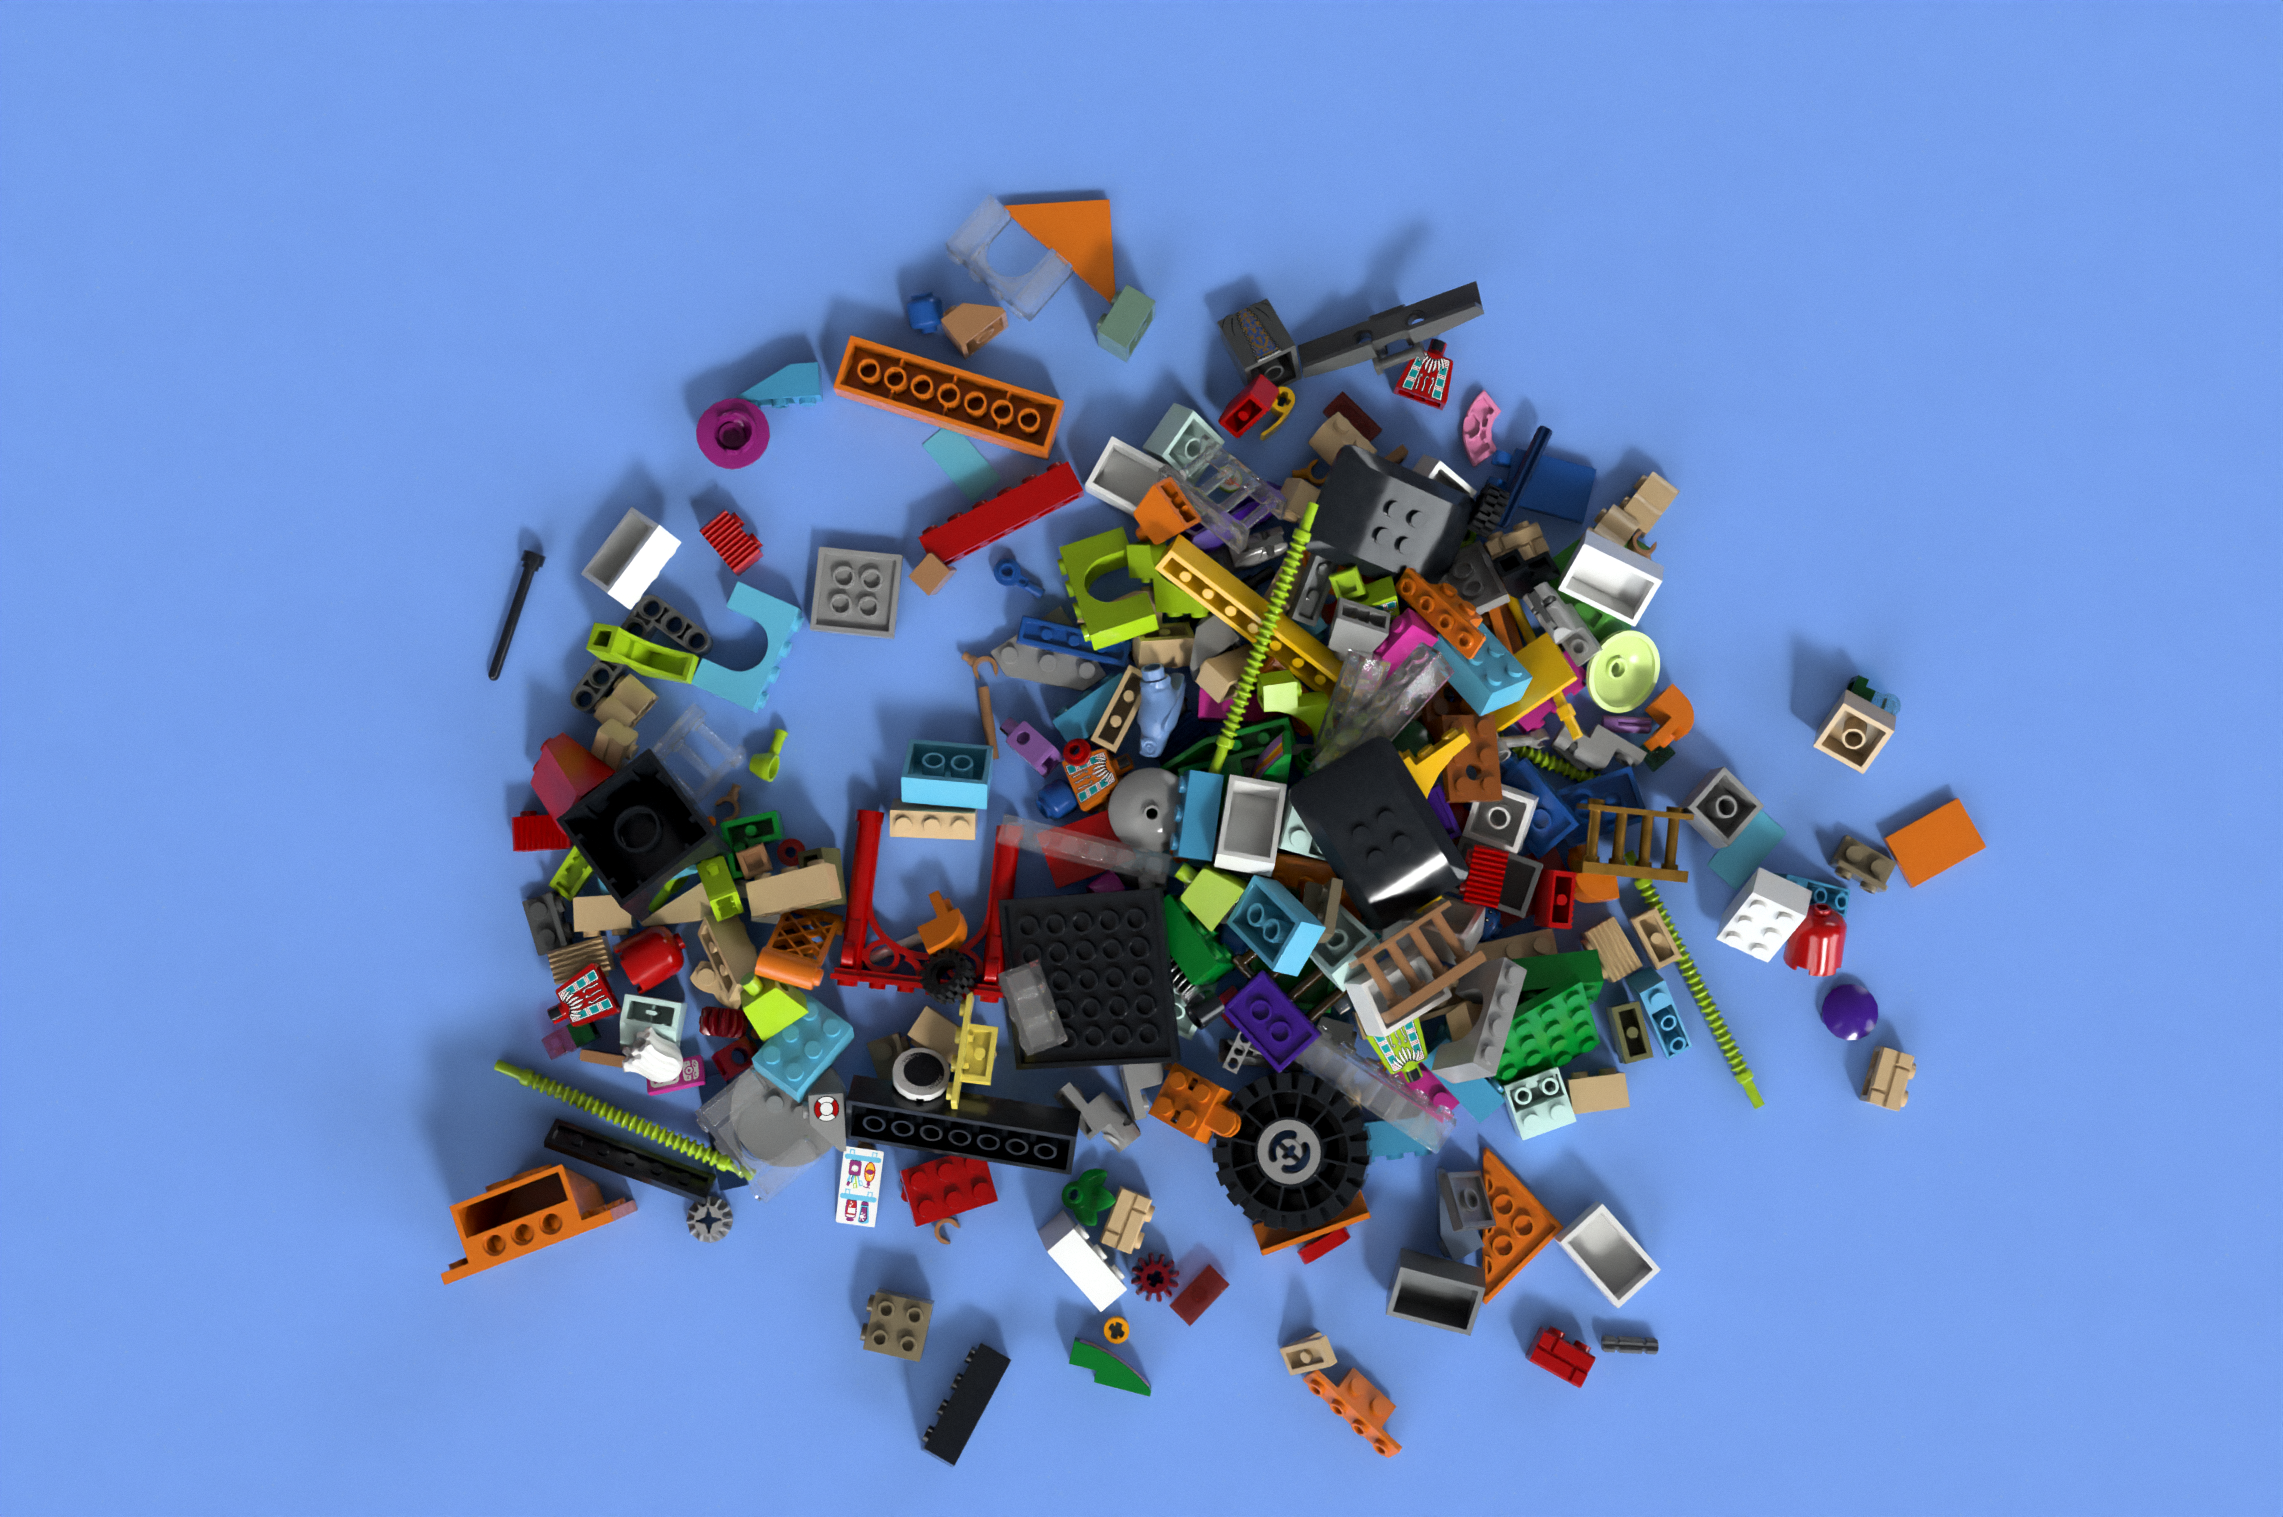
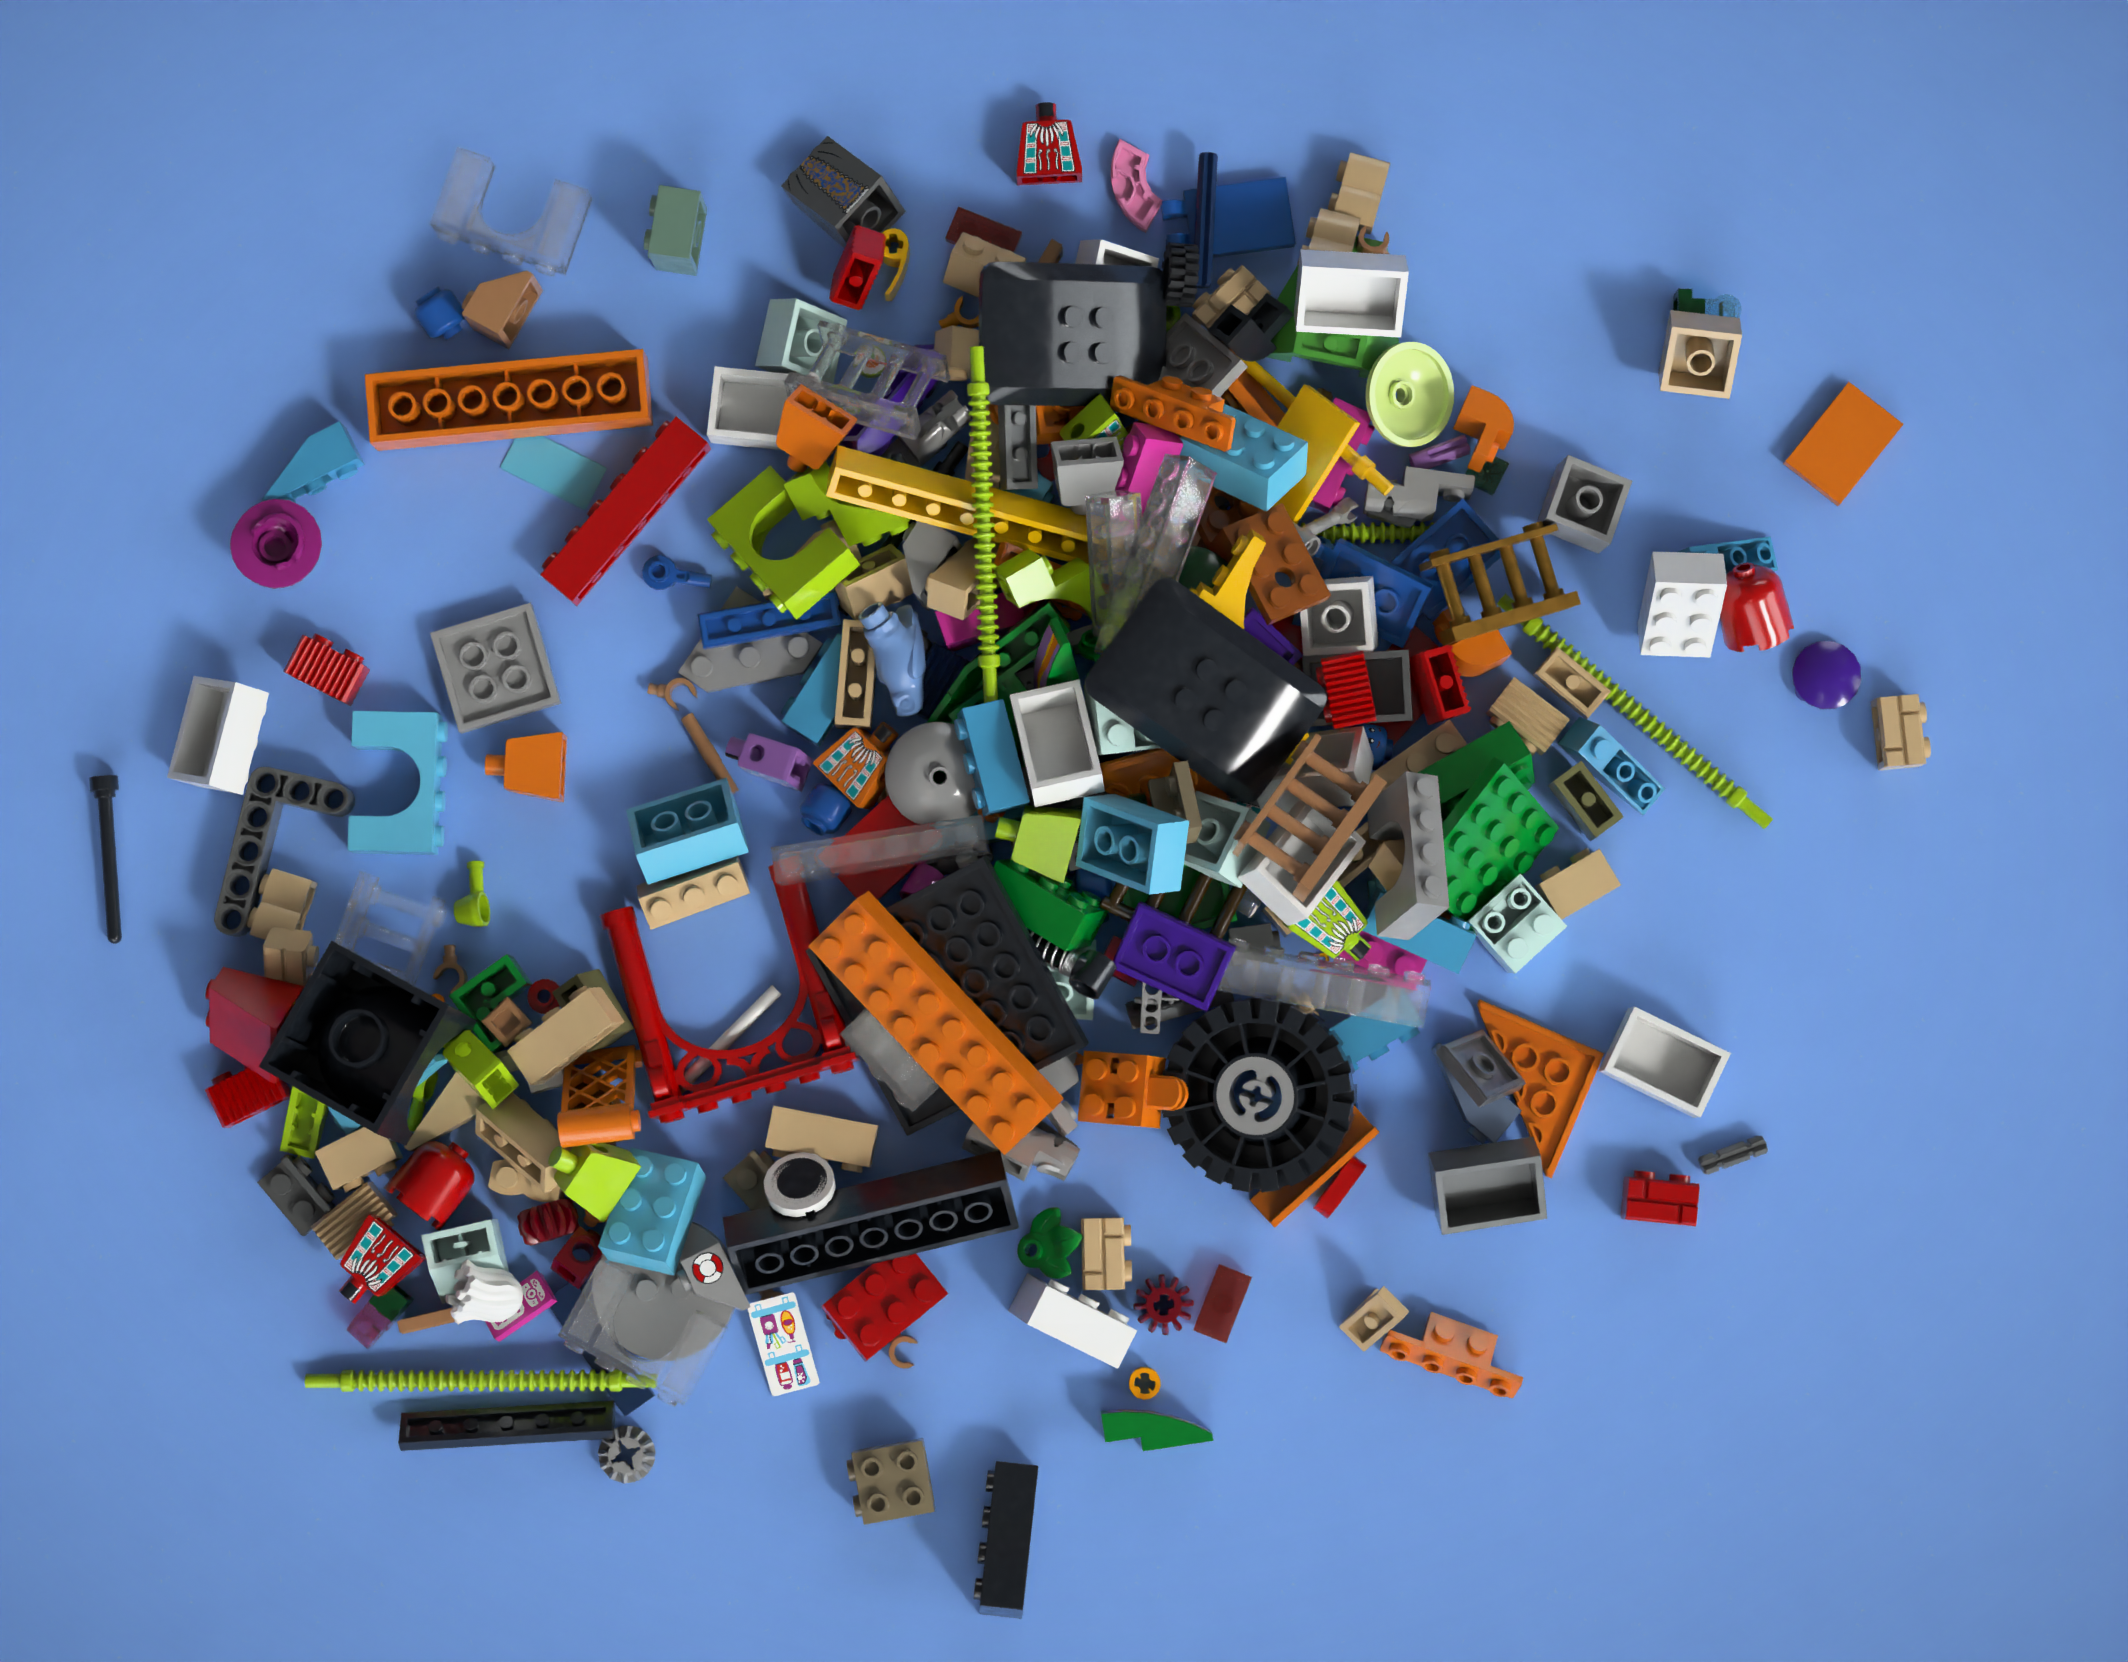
camera: 20 degrees left, 0 degrees up
(527, 1216) = (416, 1533): orange wedge -> none
(646, 658) = (287, 843): lime arch -> none
(853, 677) = (532, 765): none -> orange torso
(932, 574) = (573, 610): medium nougat panel -> none
(946, 930) = (760, 1012): orange brick -> none
(957, 985) = (797, 1067): black tyre -> none
(975, 1052) = (851, 1132): light yellow bracket -> none
(1073, 997) = (936, 1022): none -> orange brick
(1078, 233) = (578, 150): orange tile -> none
(1081, 757) = (833, 747): red plate -> none
(1344, 346) = (940, 159): dark grey piece -> none
(1347, 583) = (1053, 422): lime tile -> none
(1562, 623) = (1317, 368): light grey plate -> none
(1747, 851) = (1635, 537): medium azure sticker -> none
(1862, 864) = (1772, 502): dark tan bracket -> none

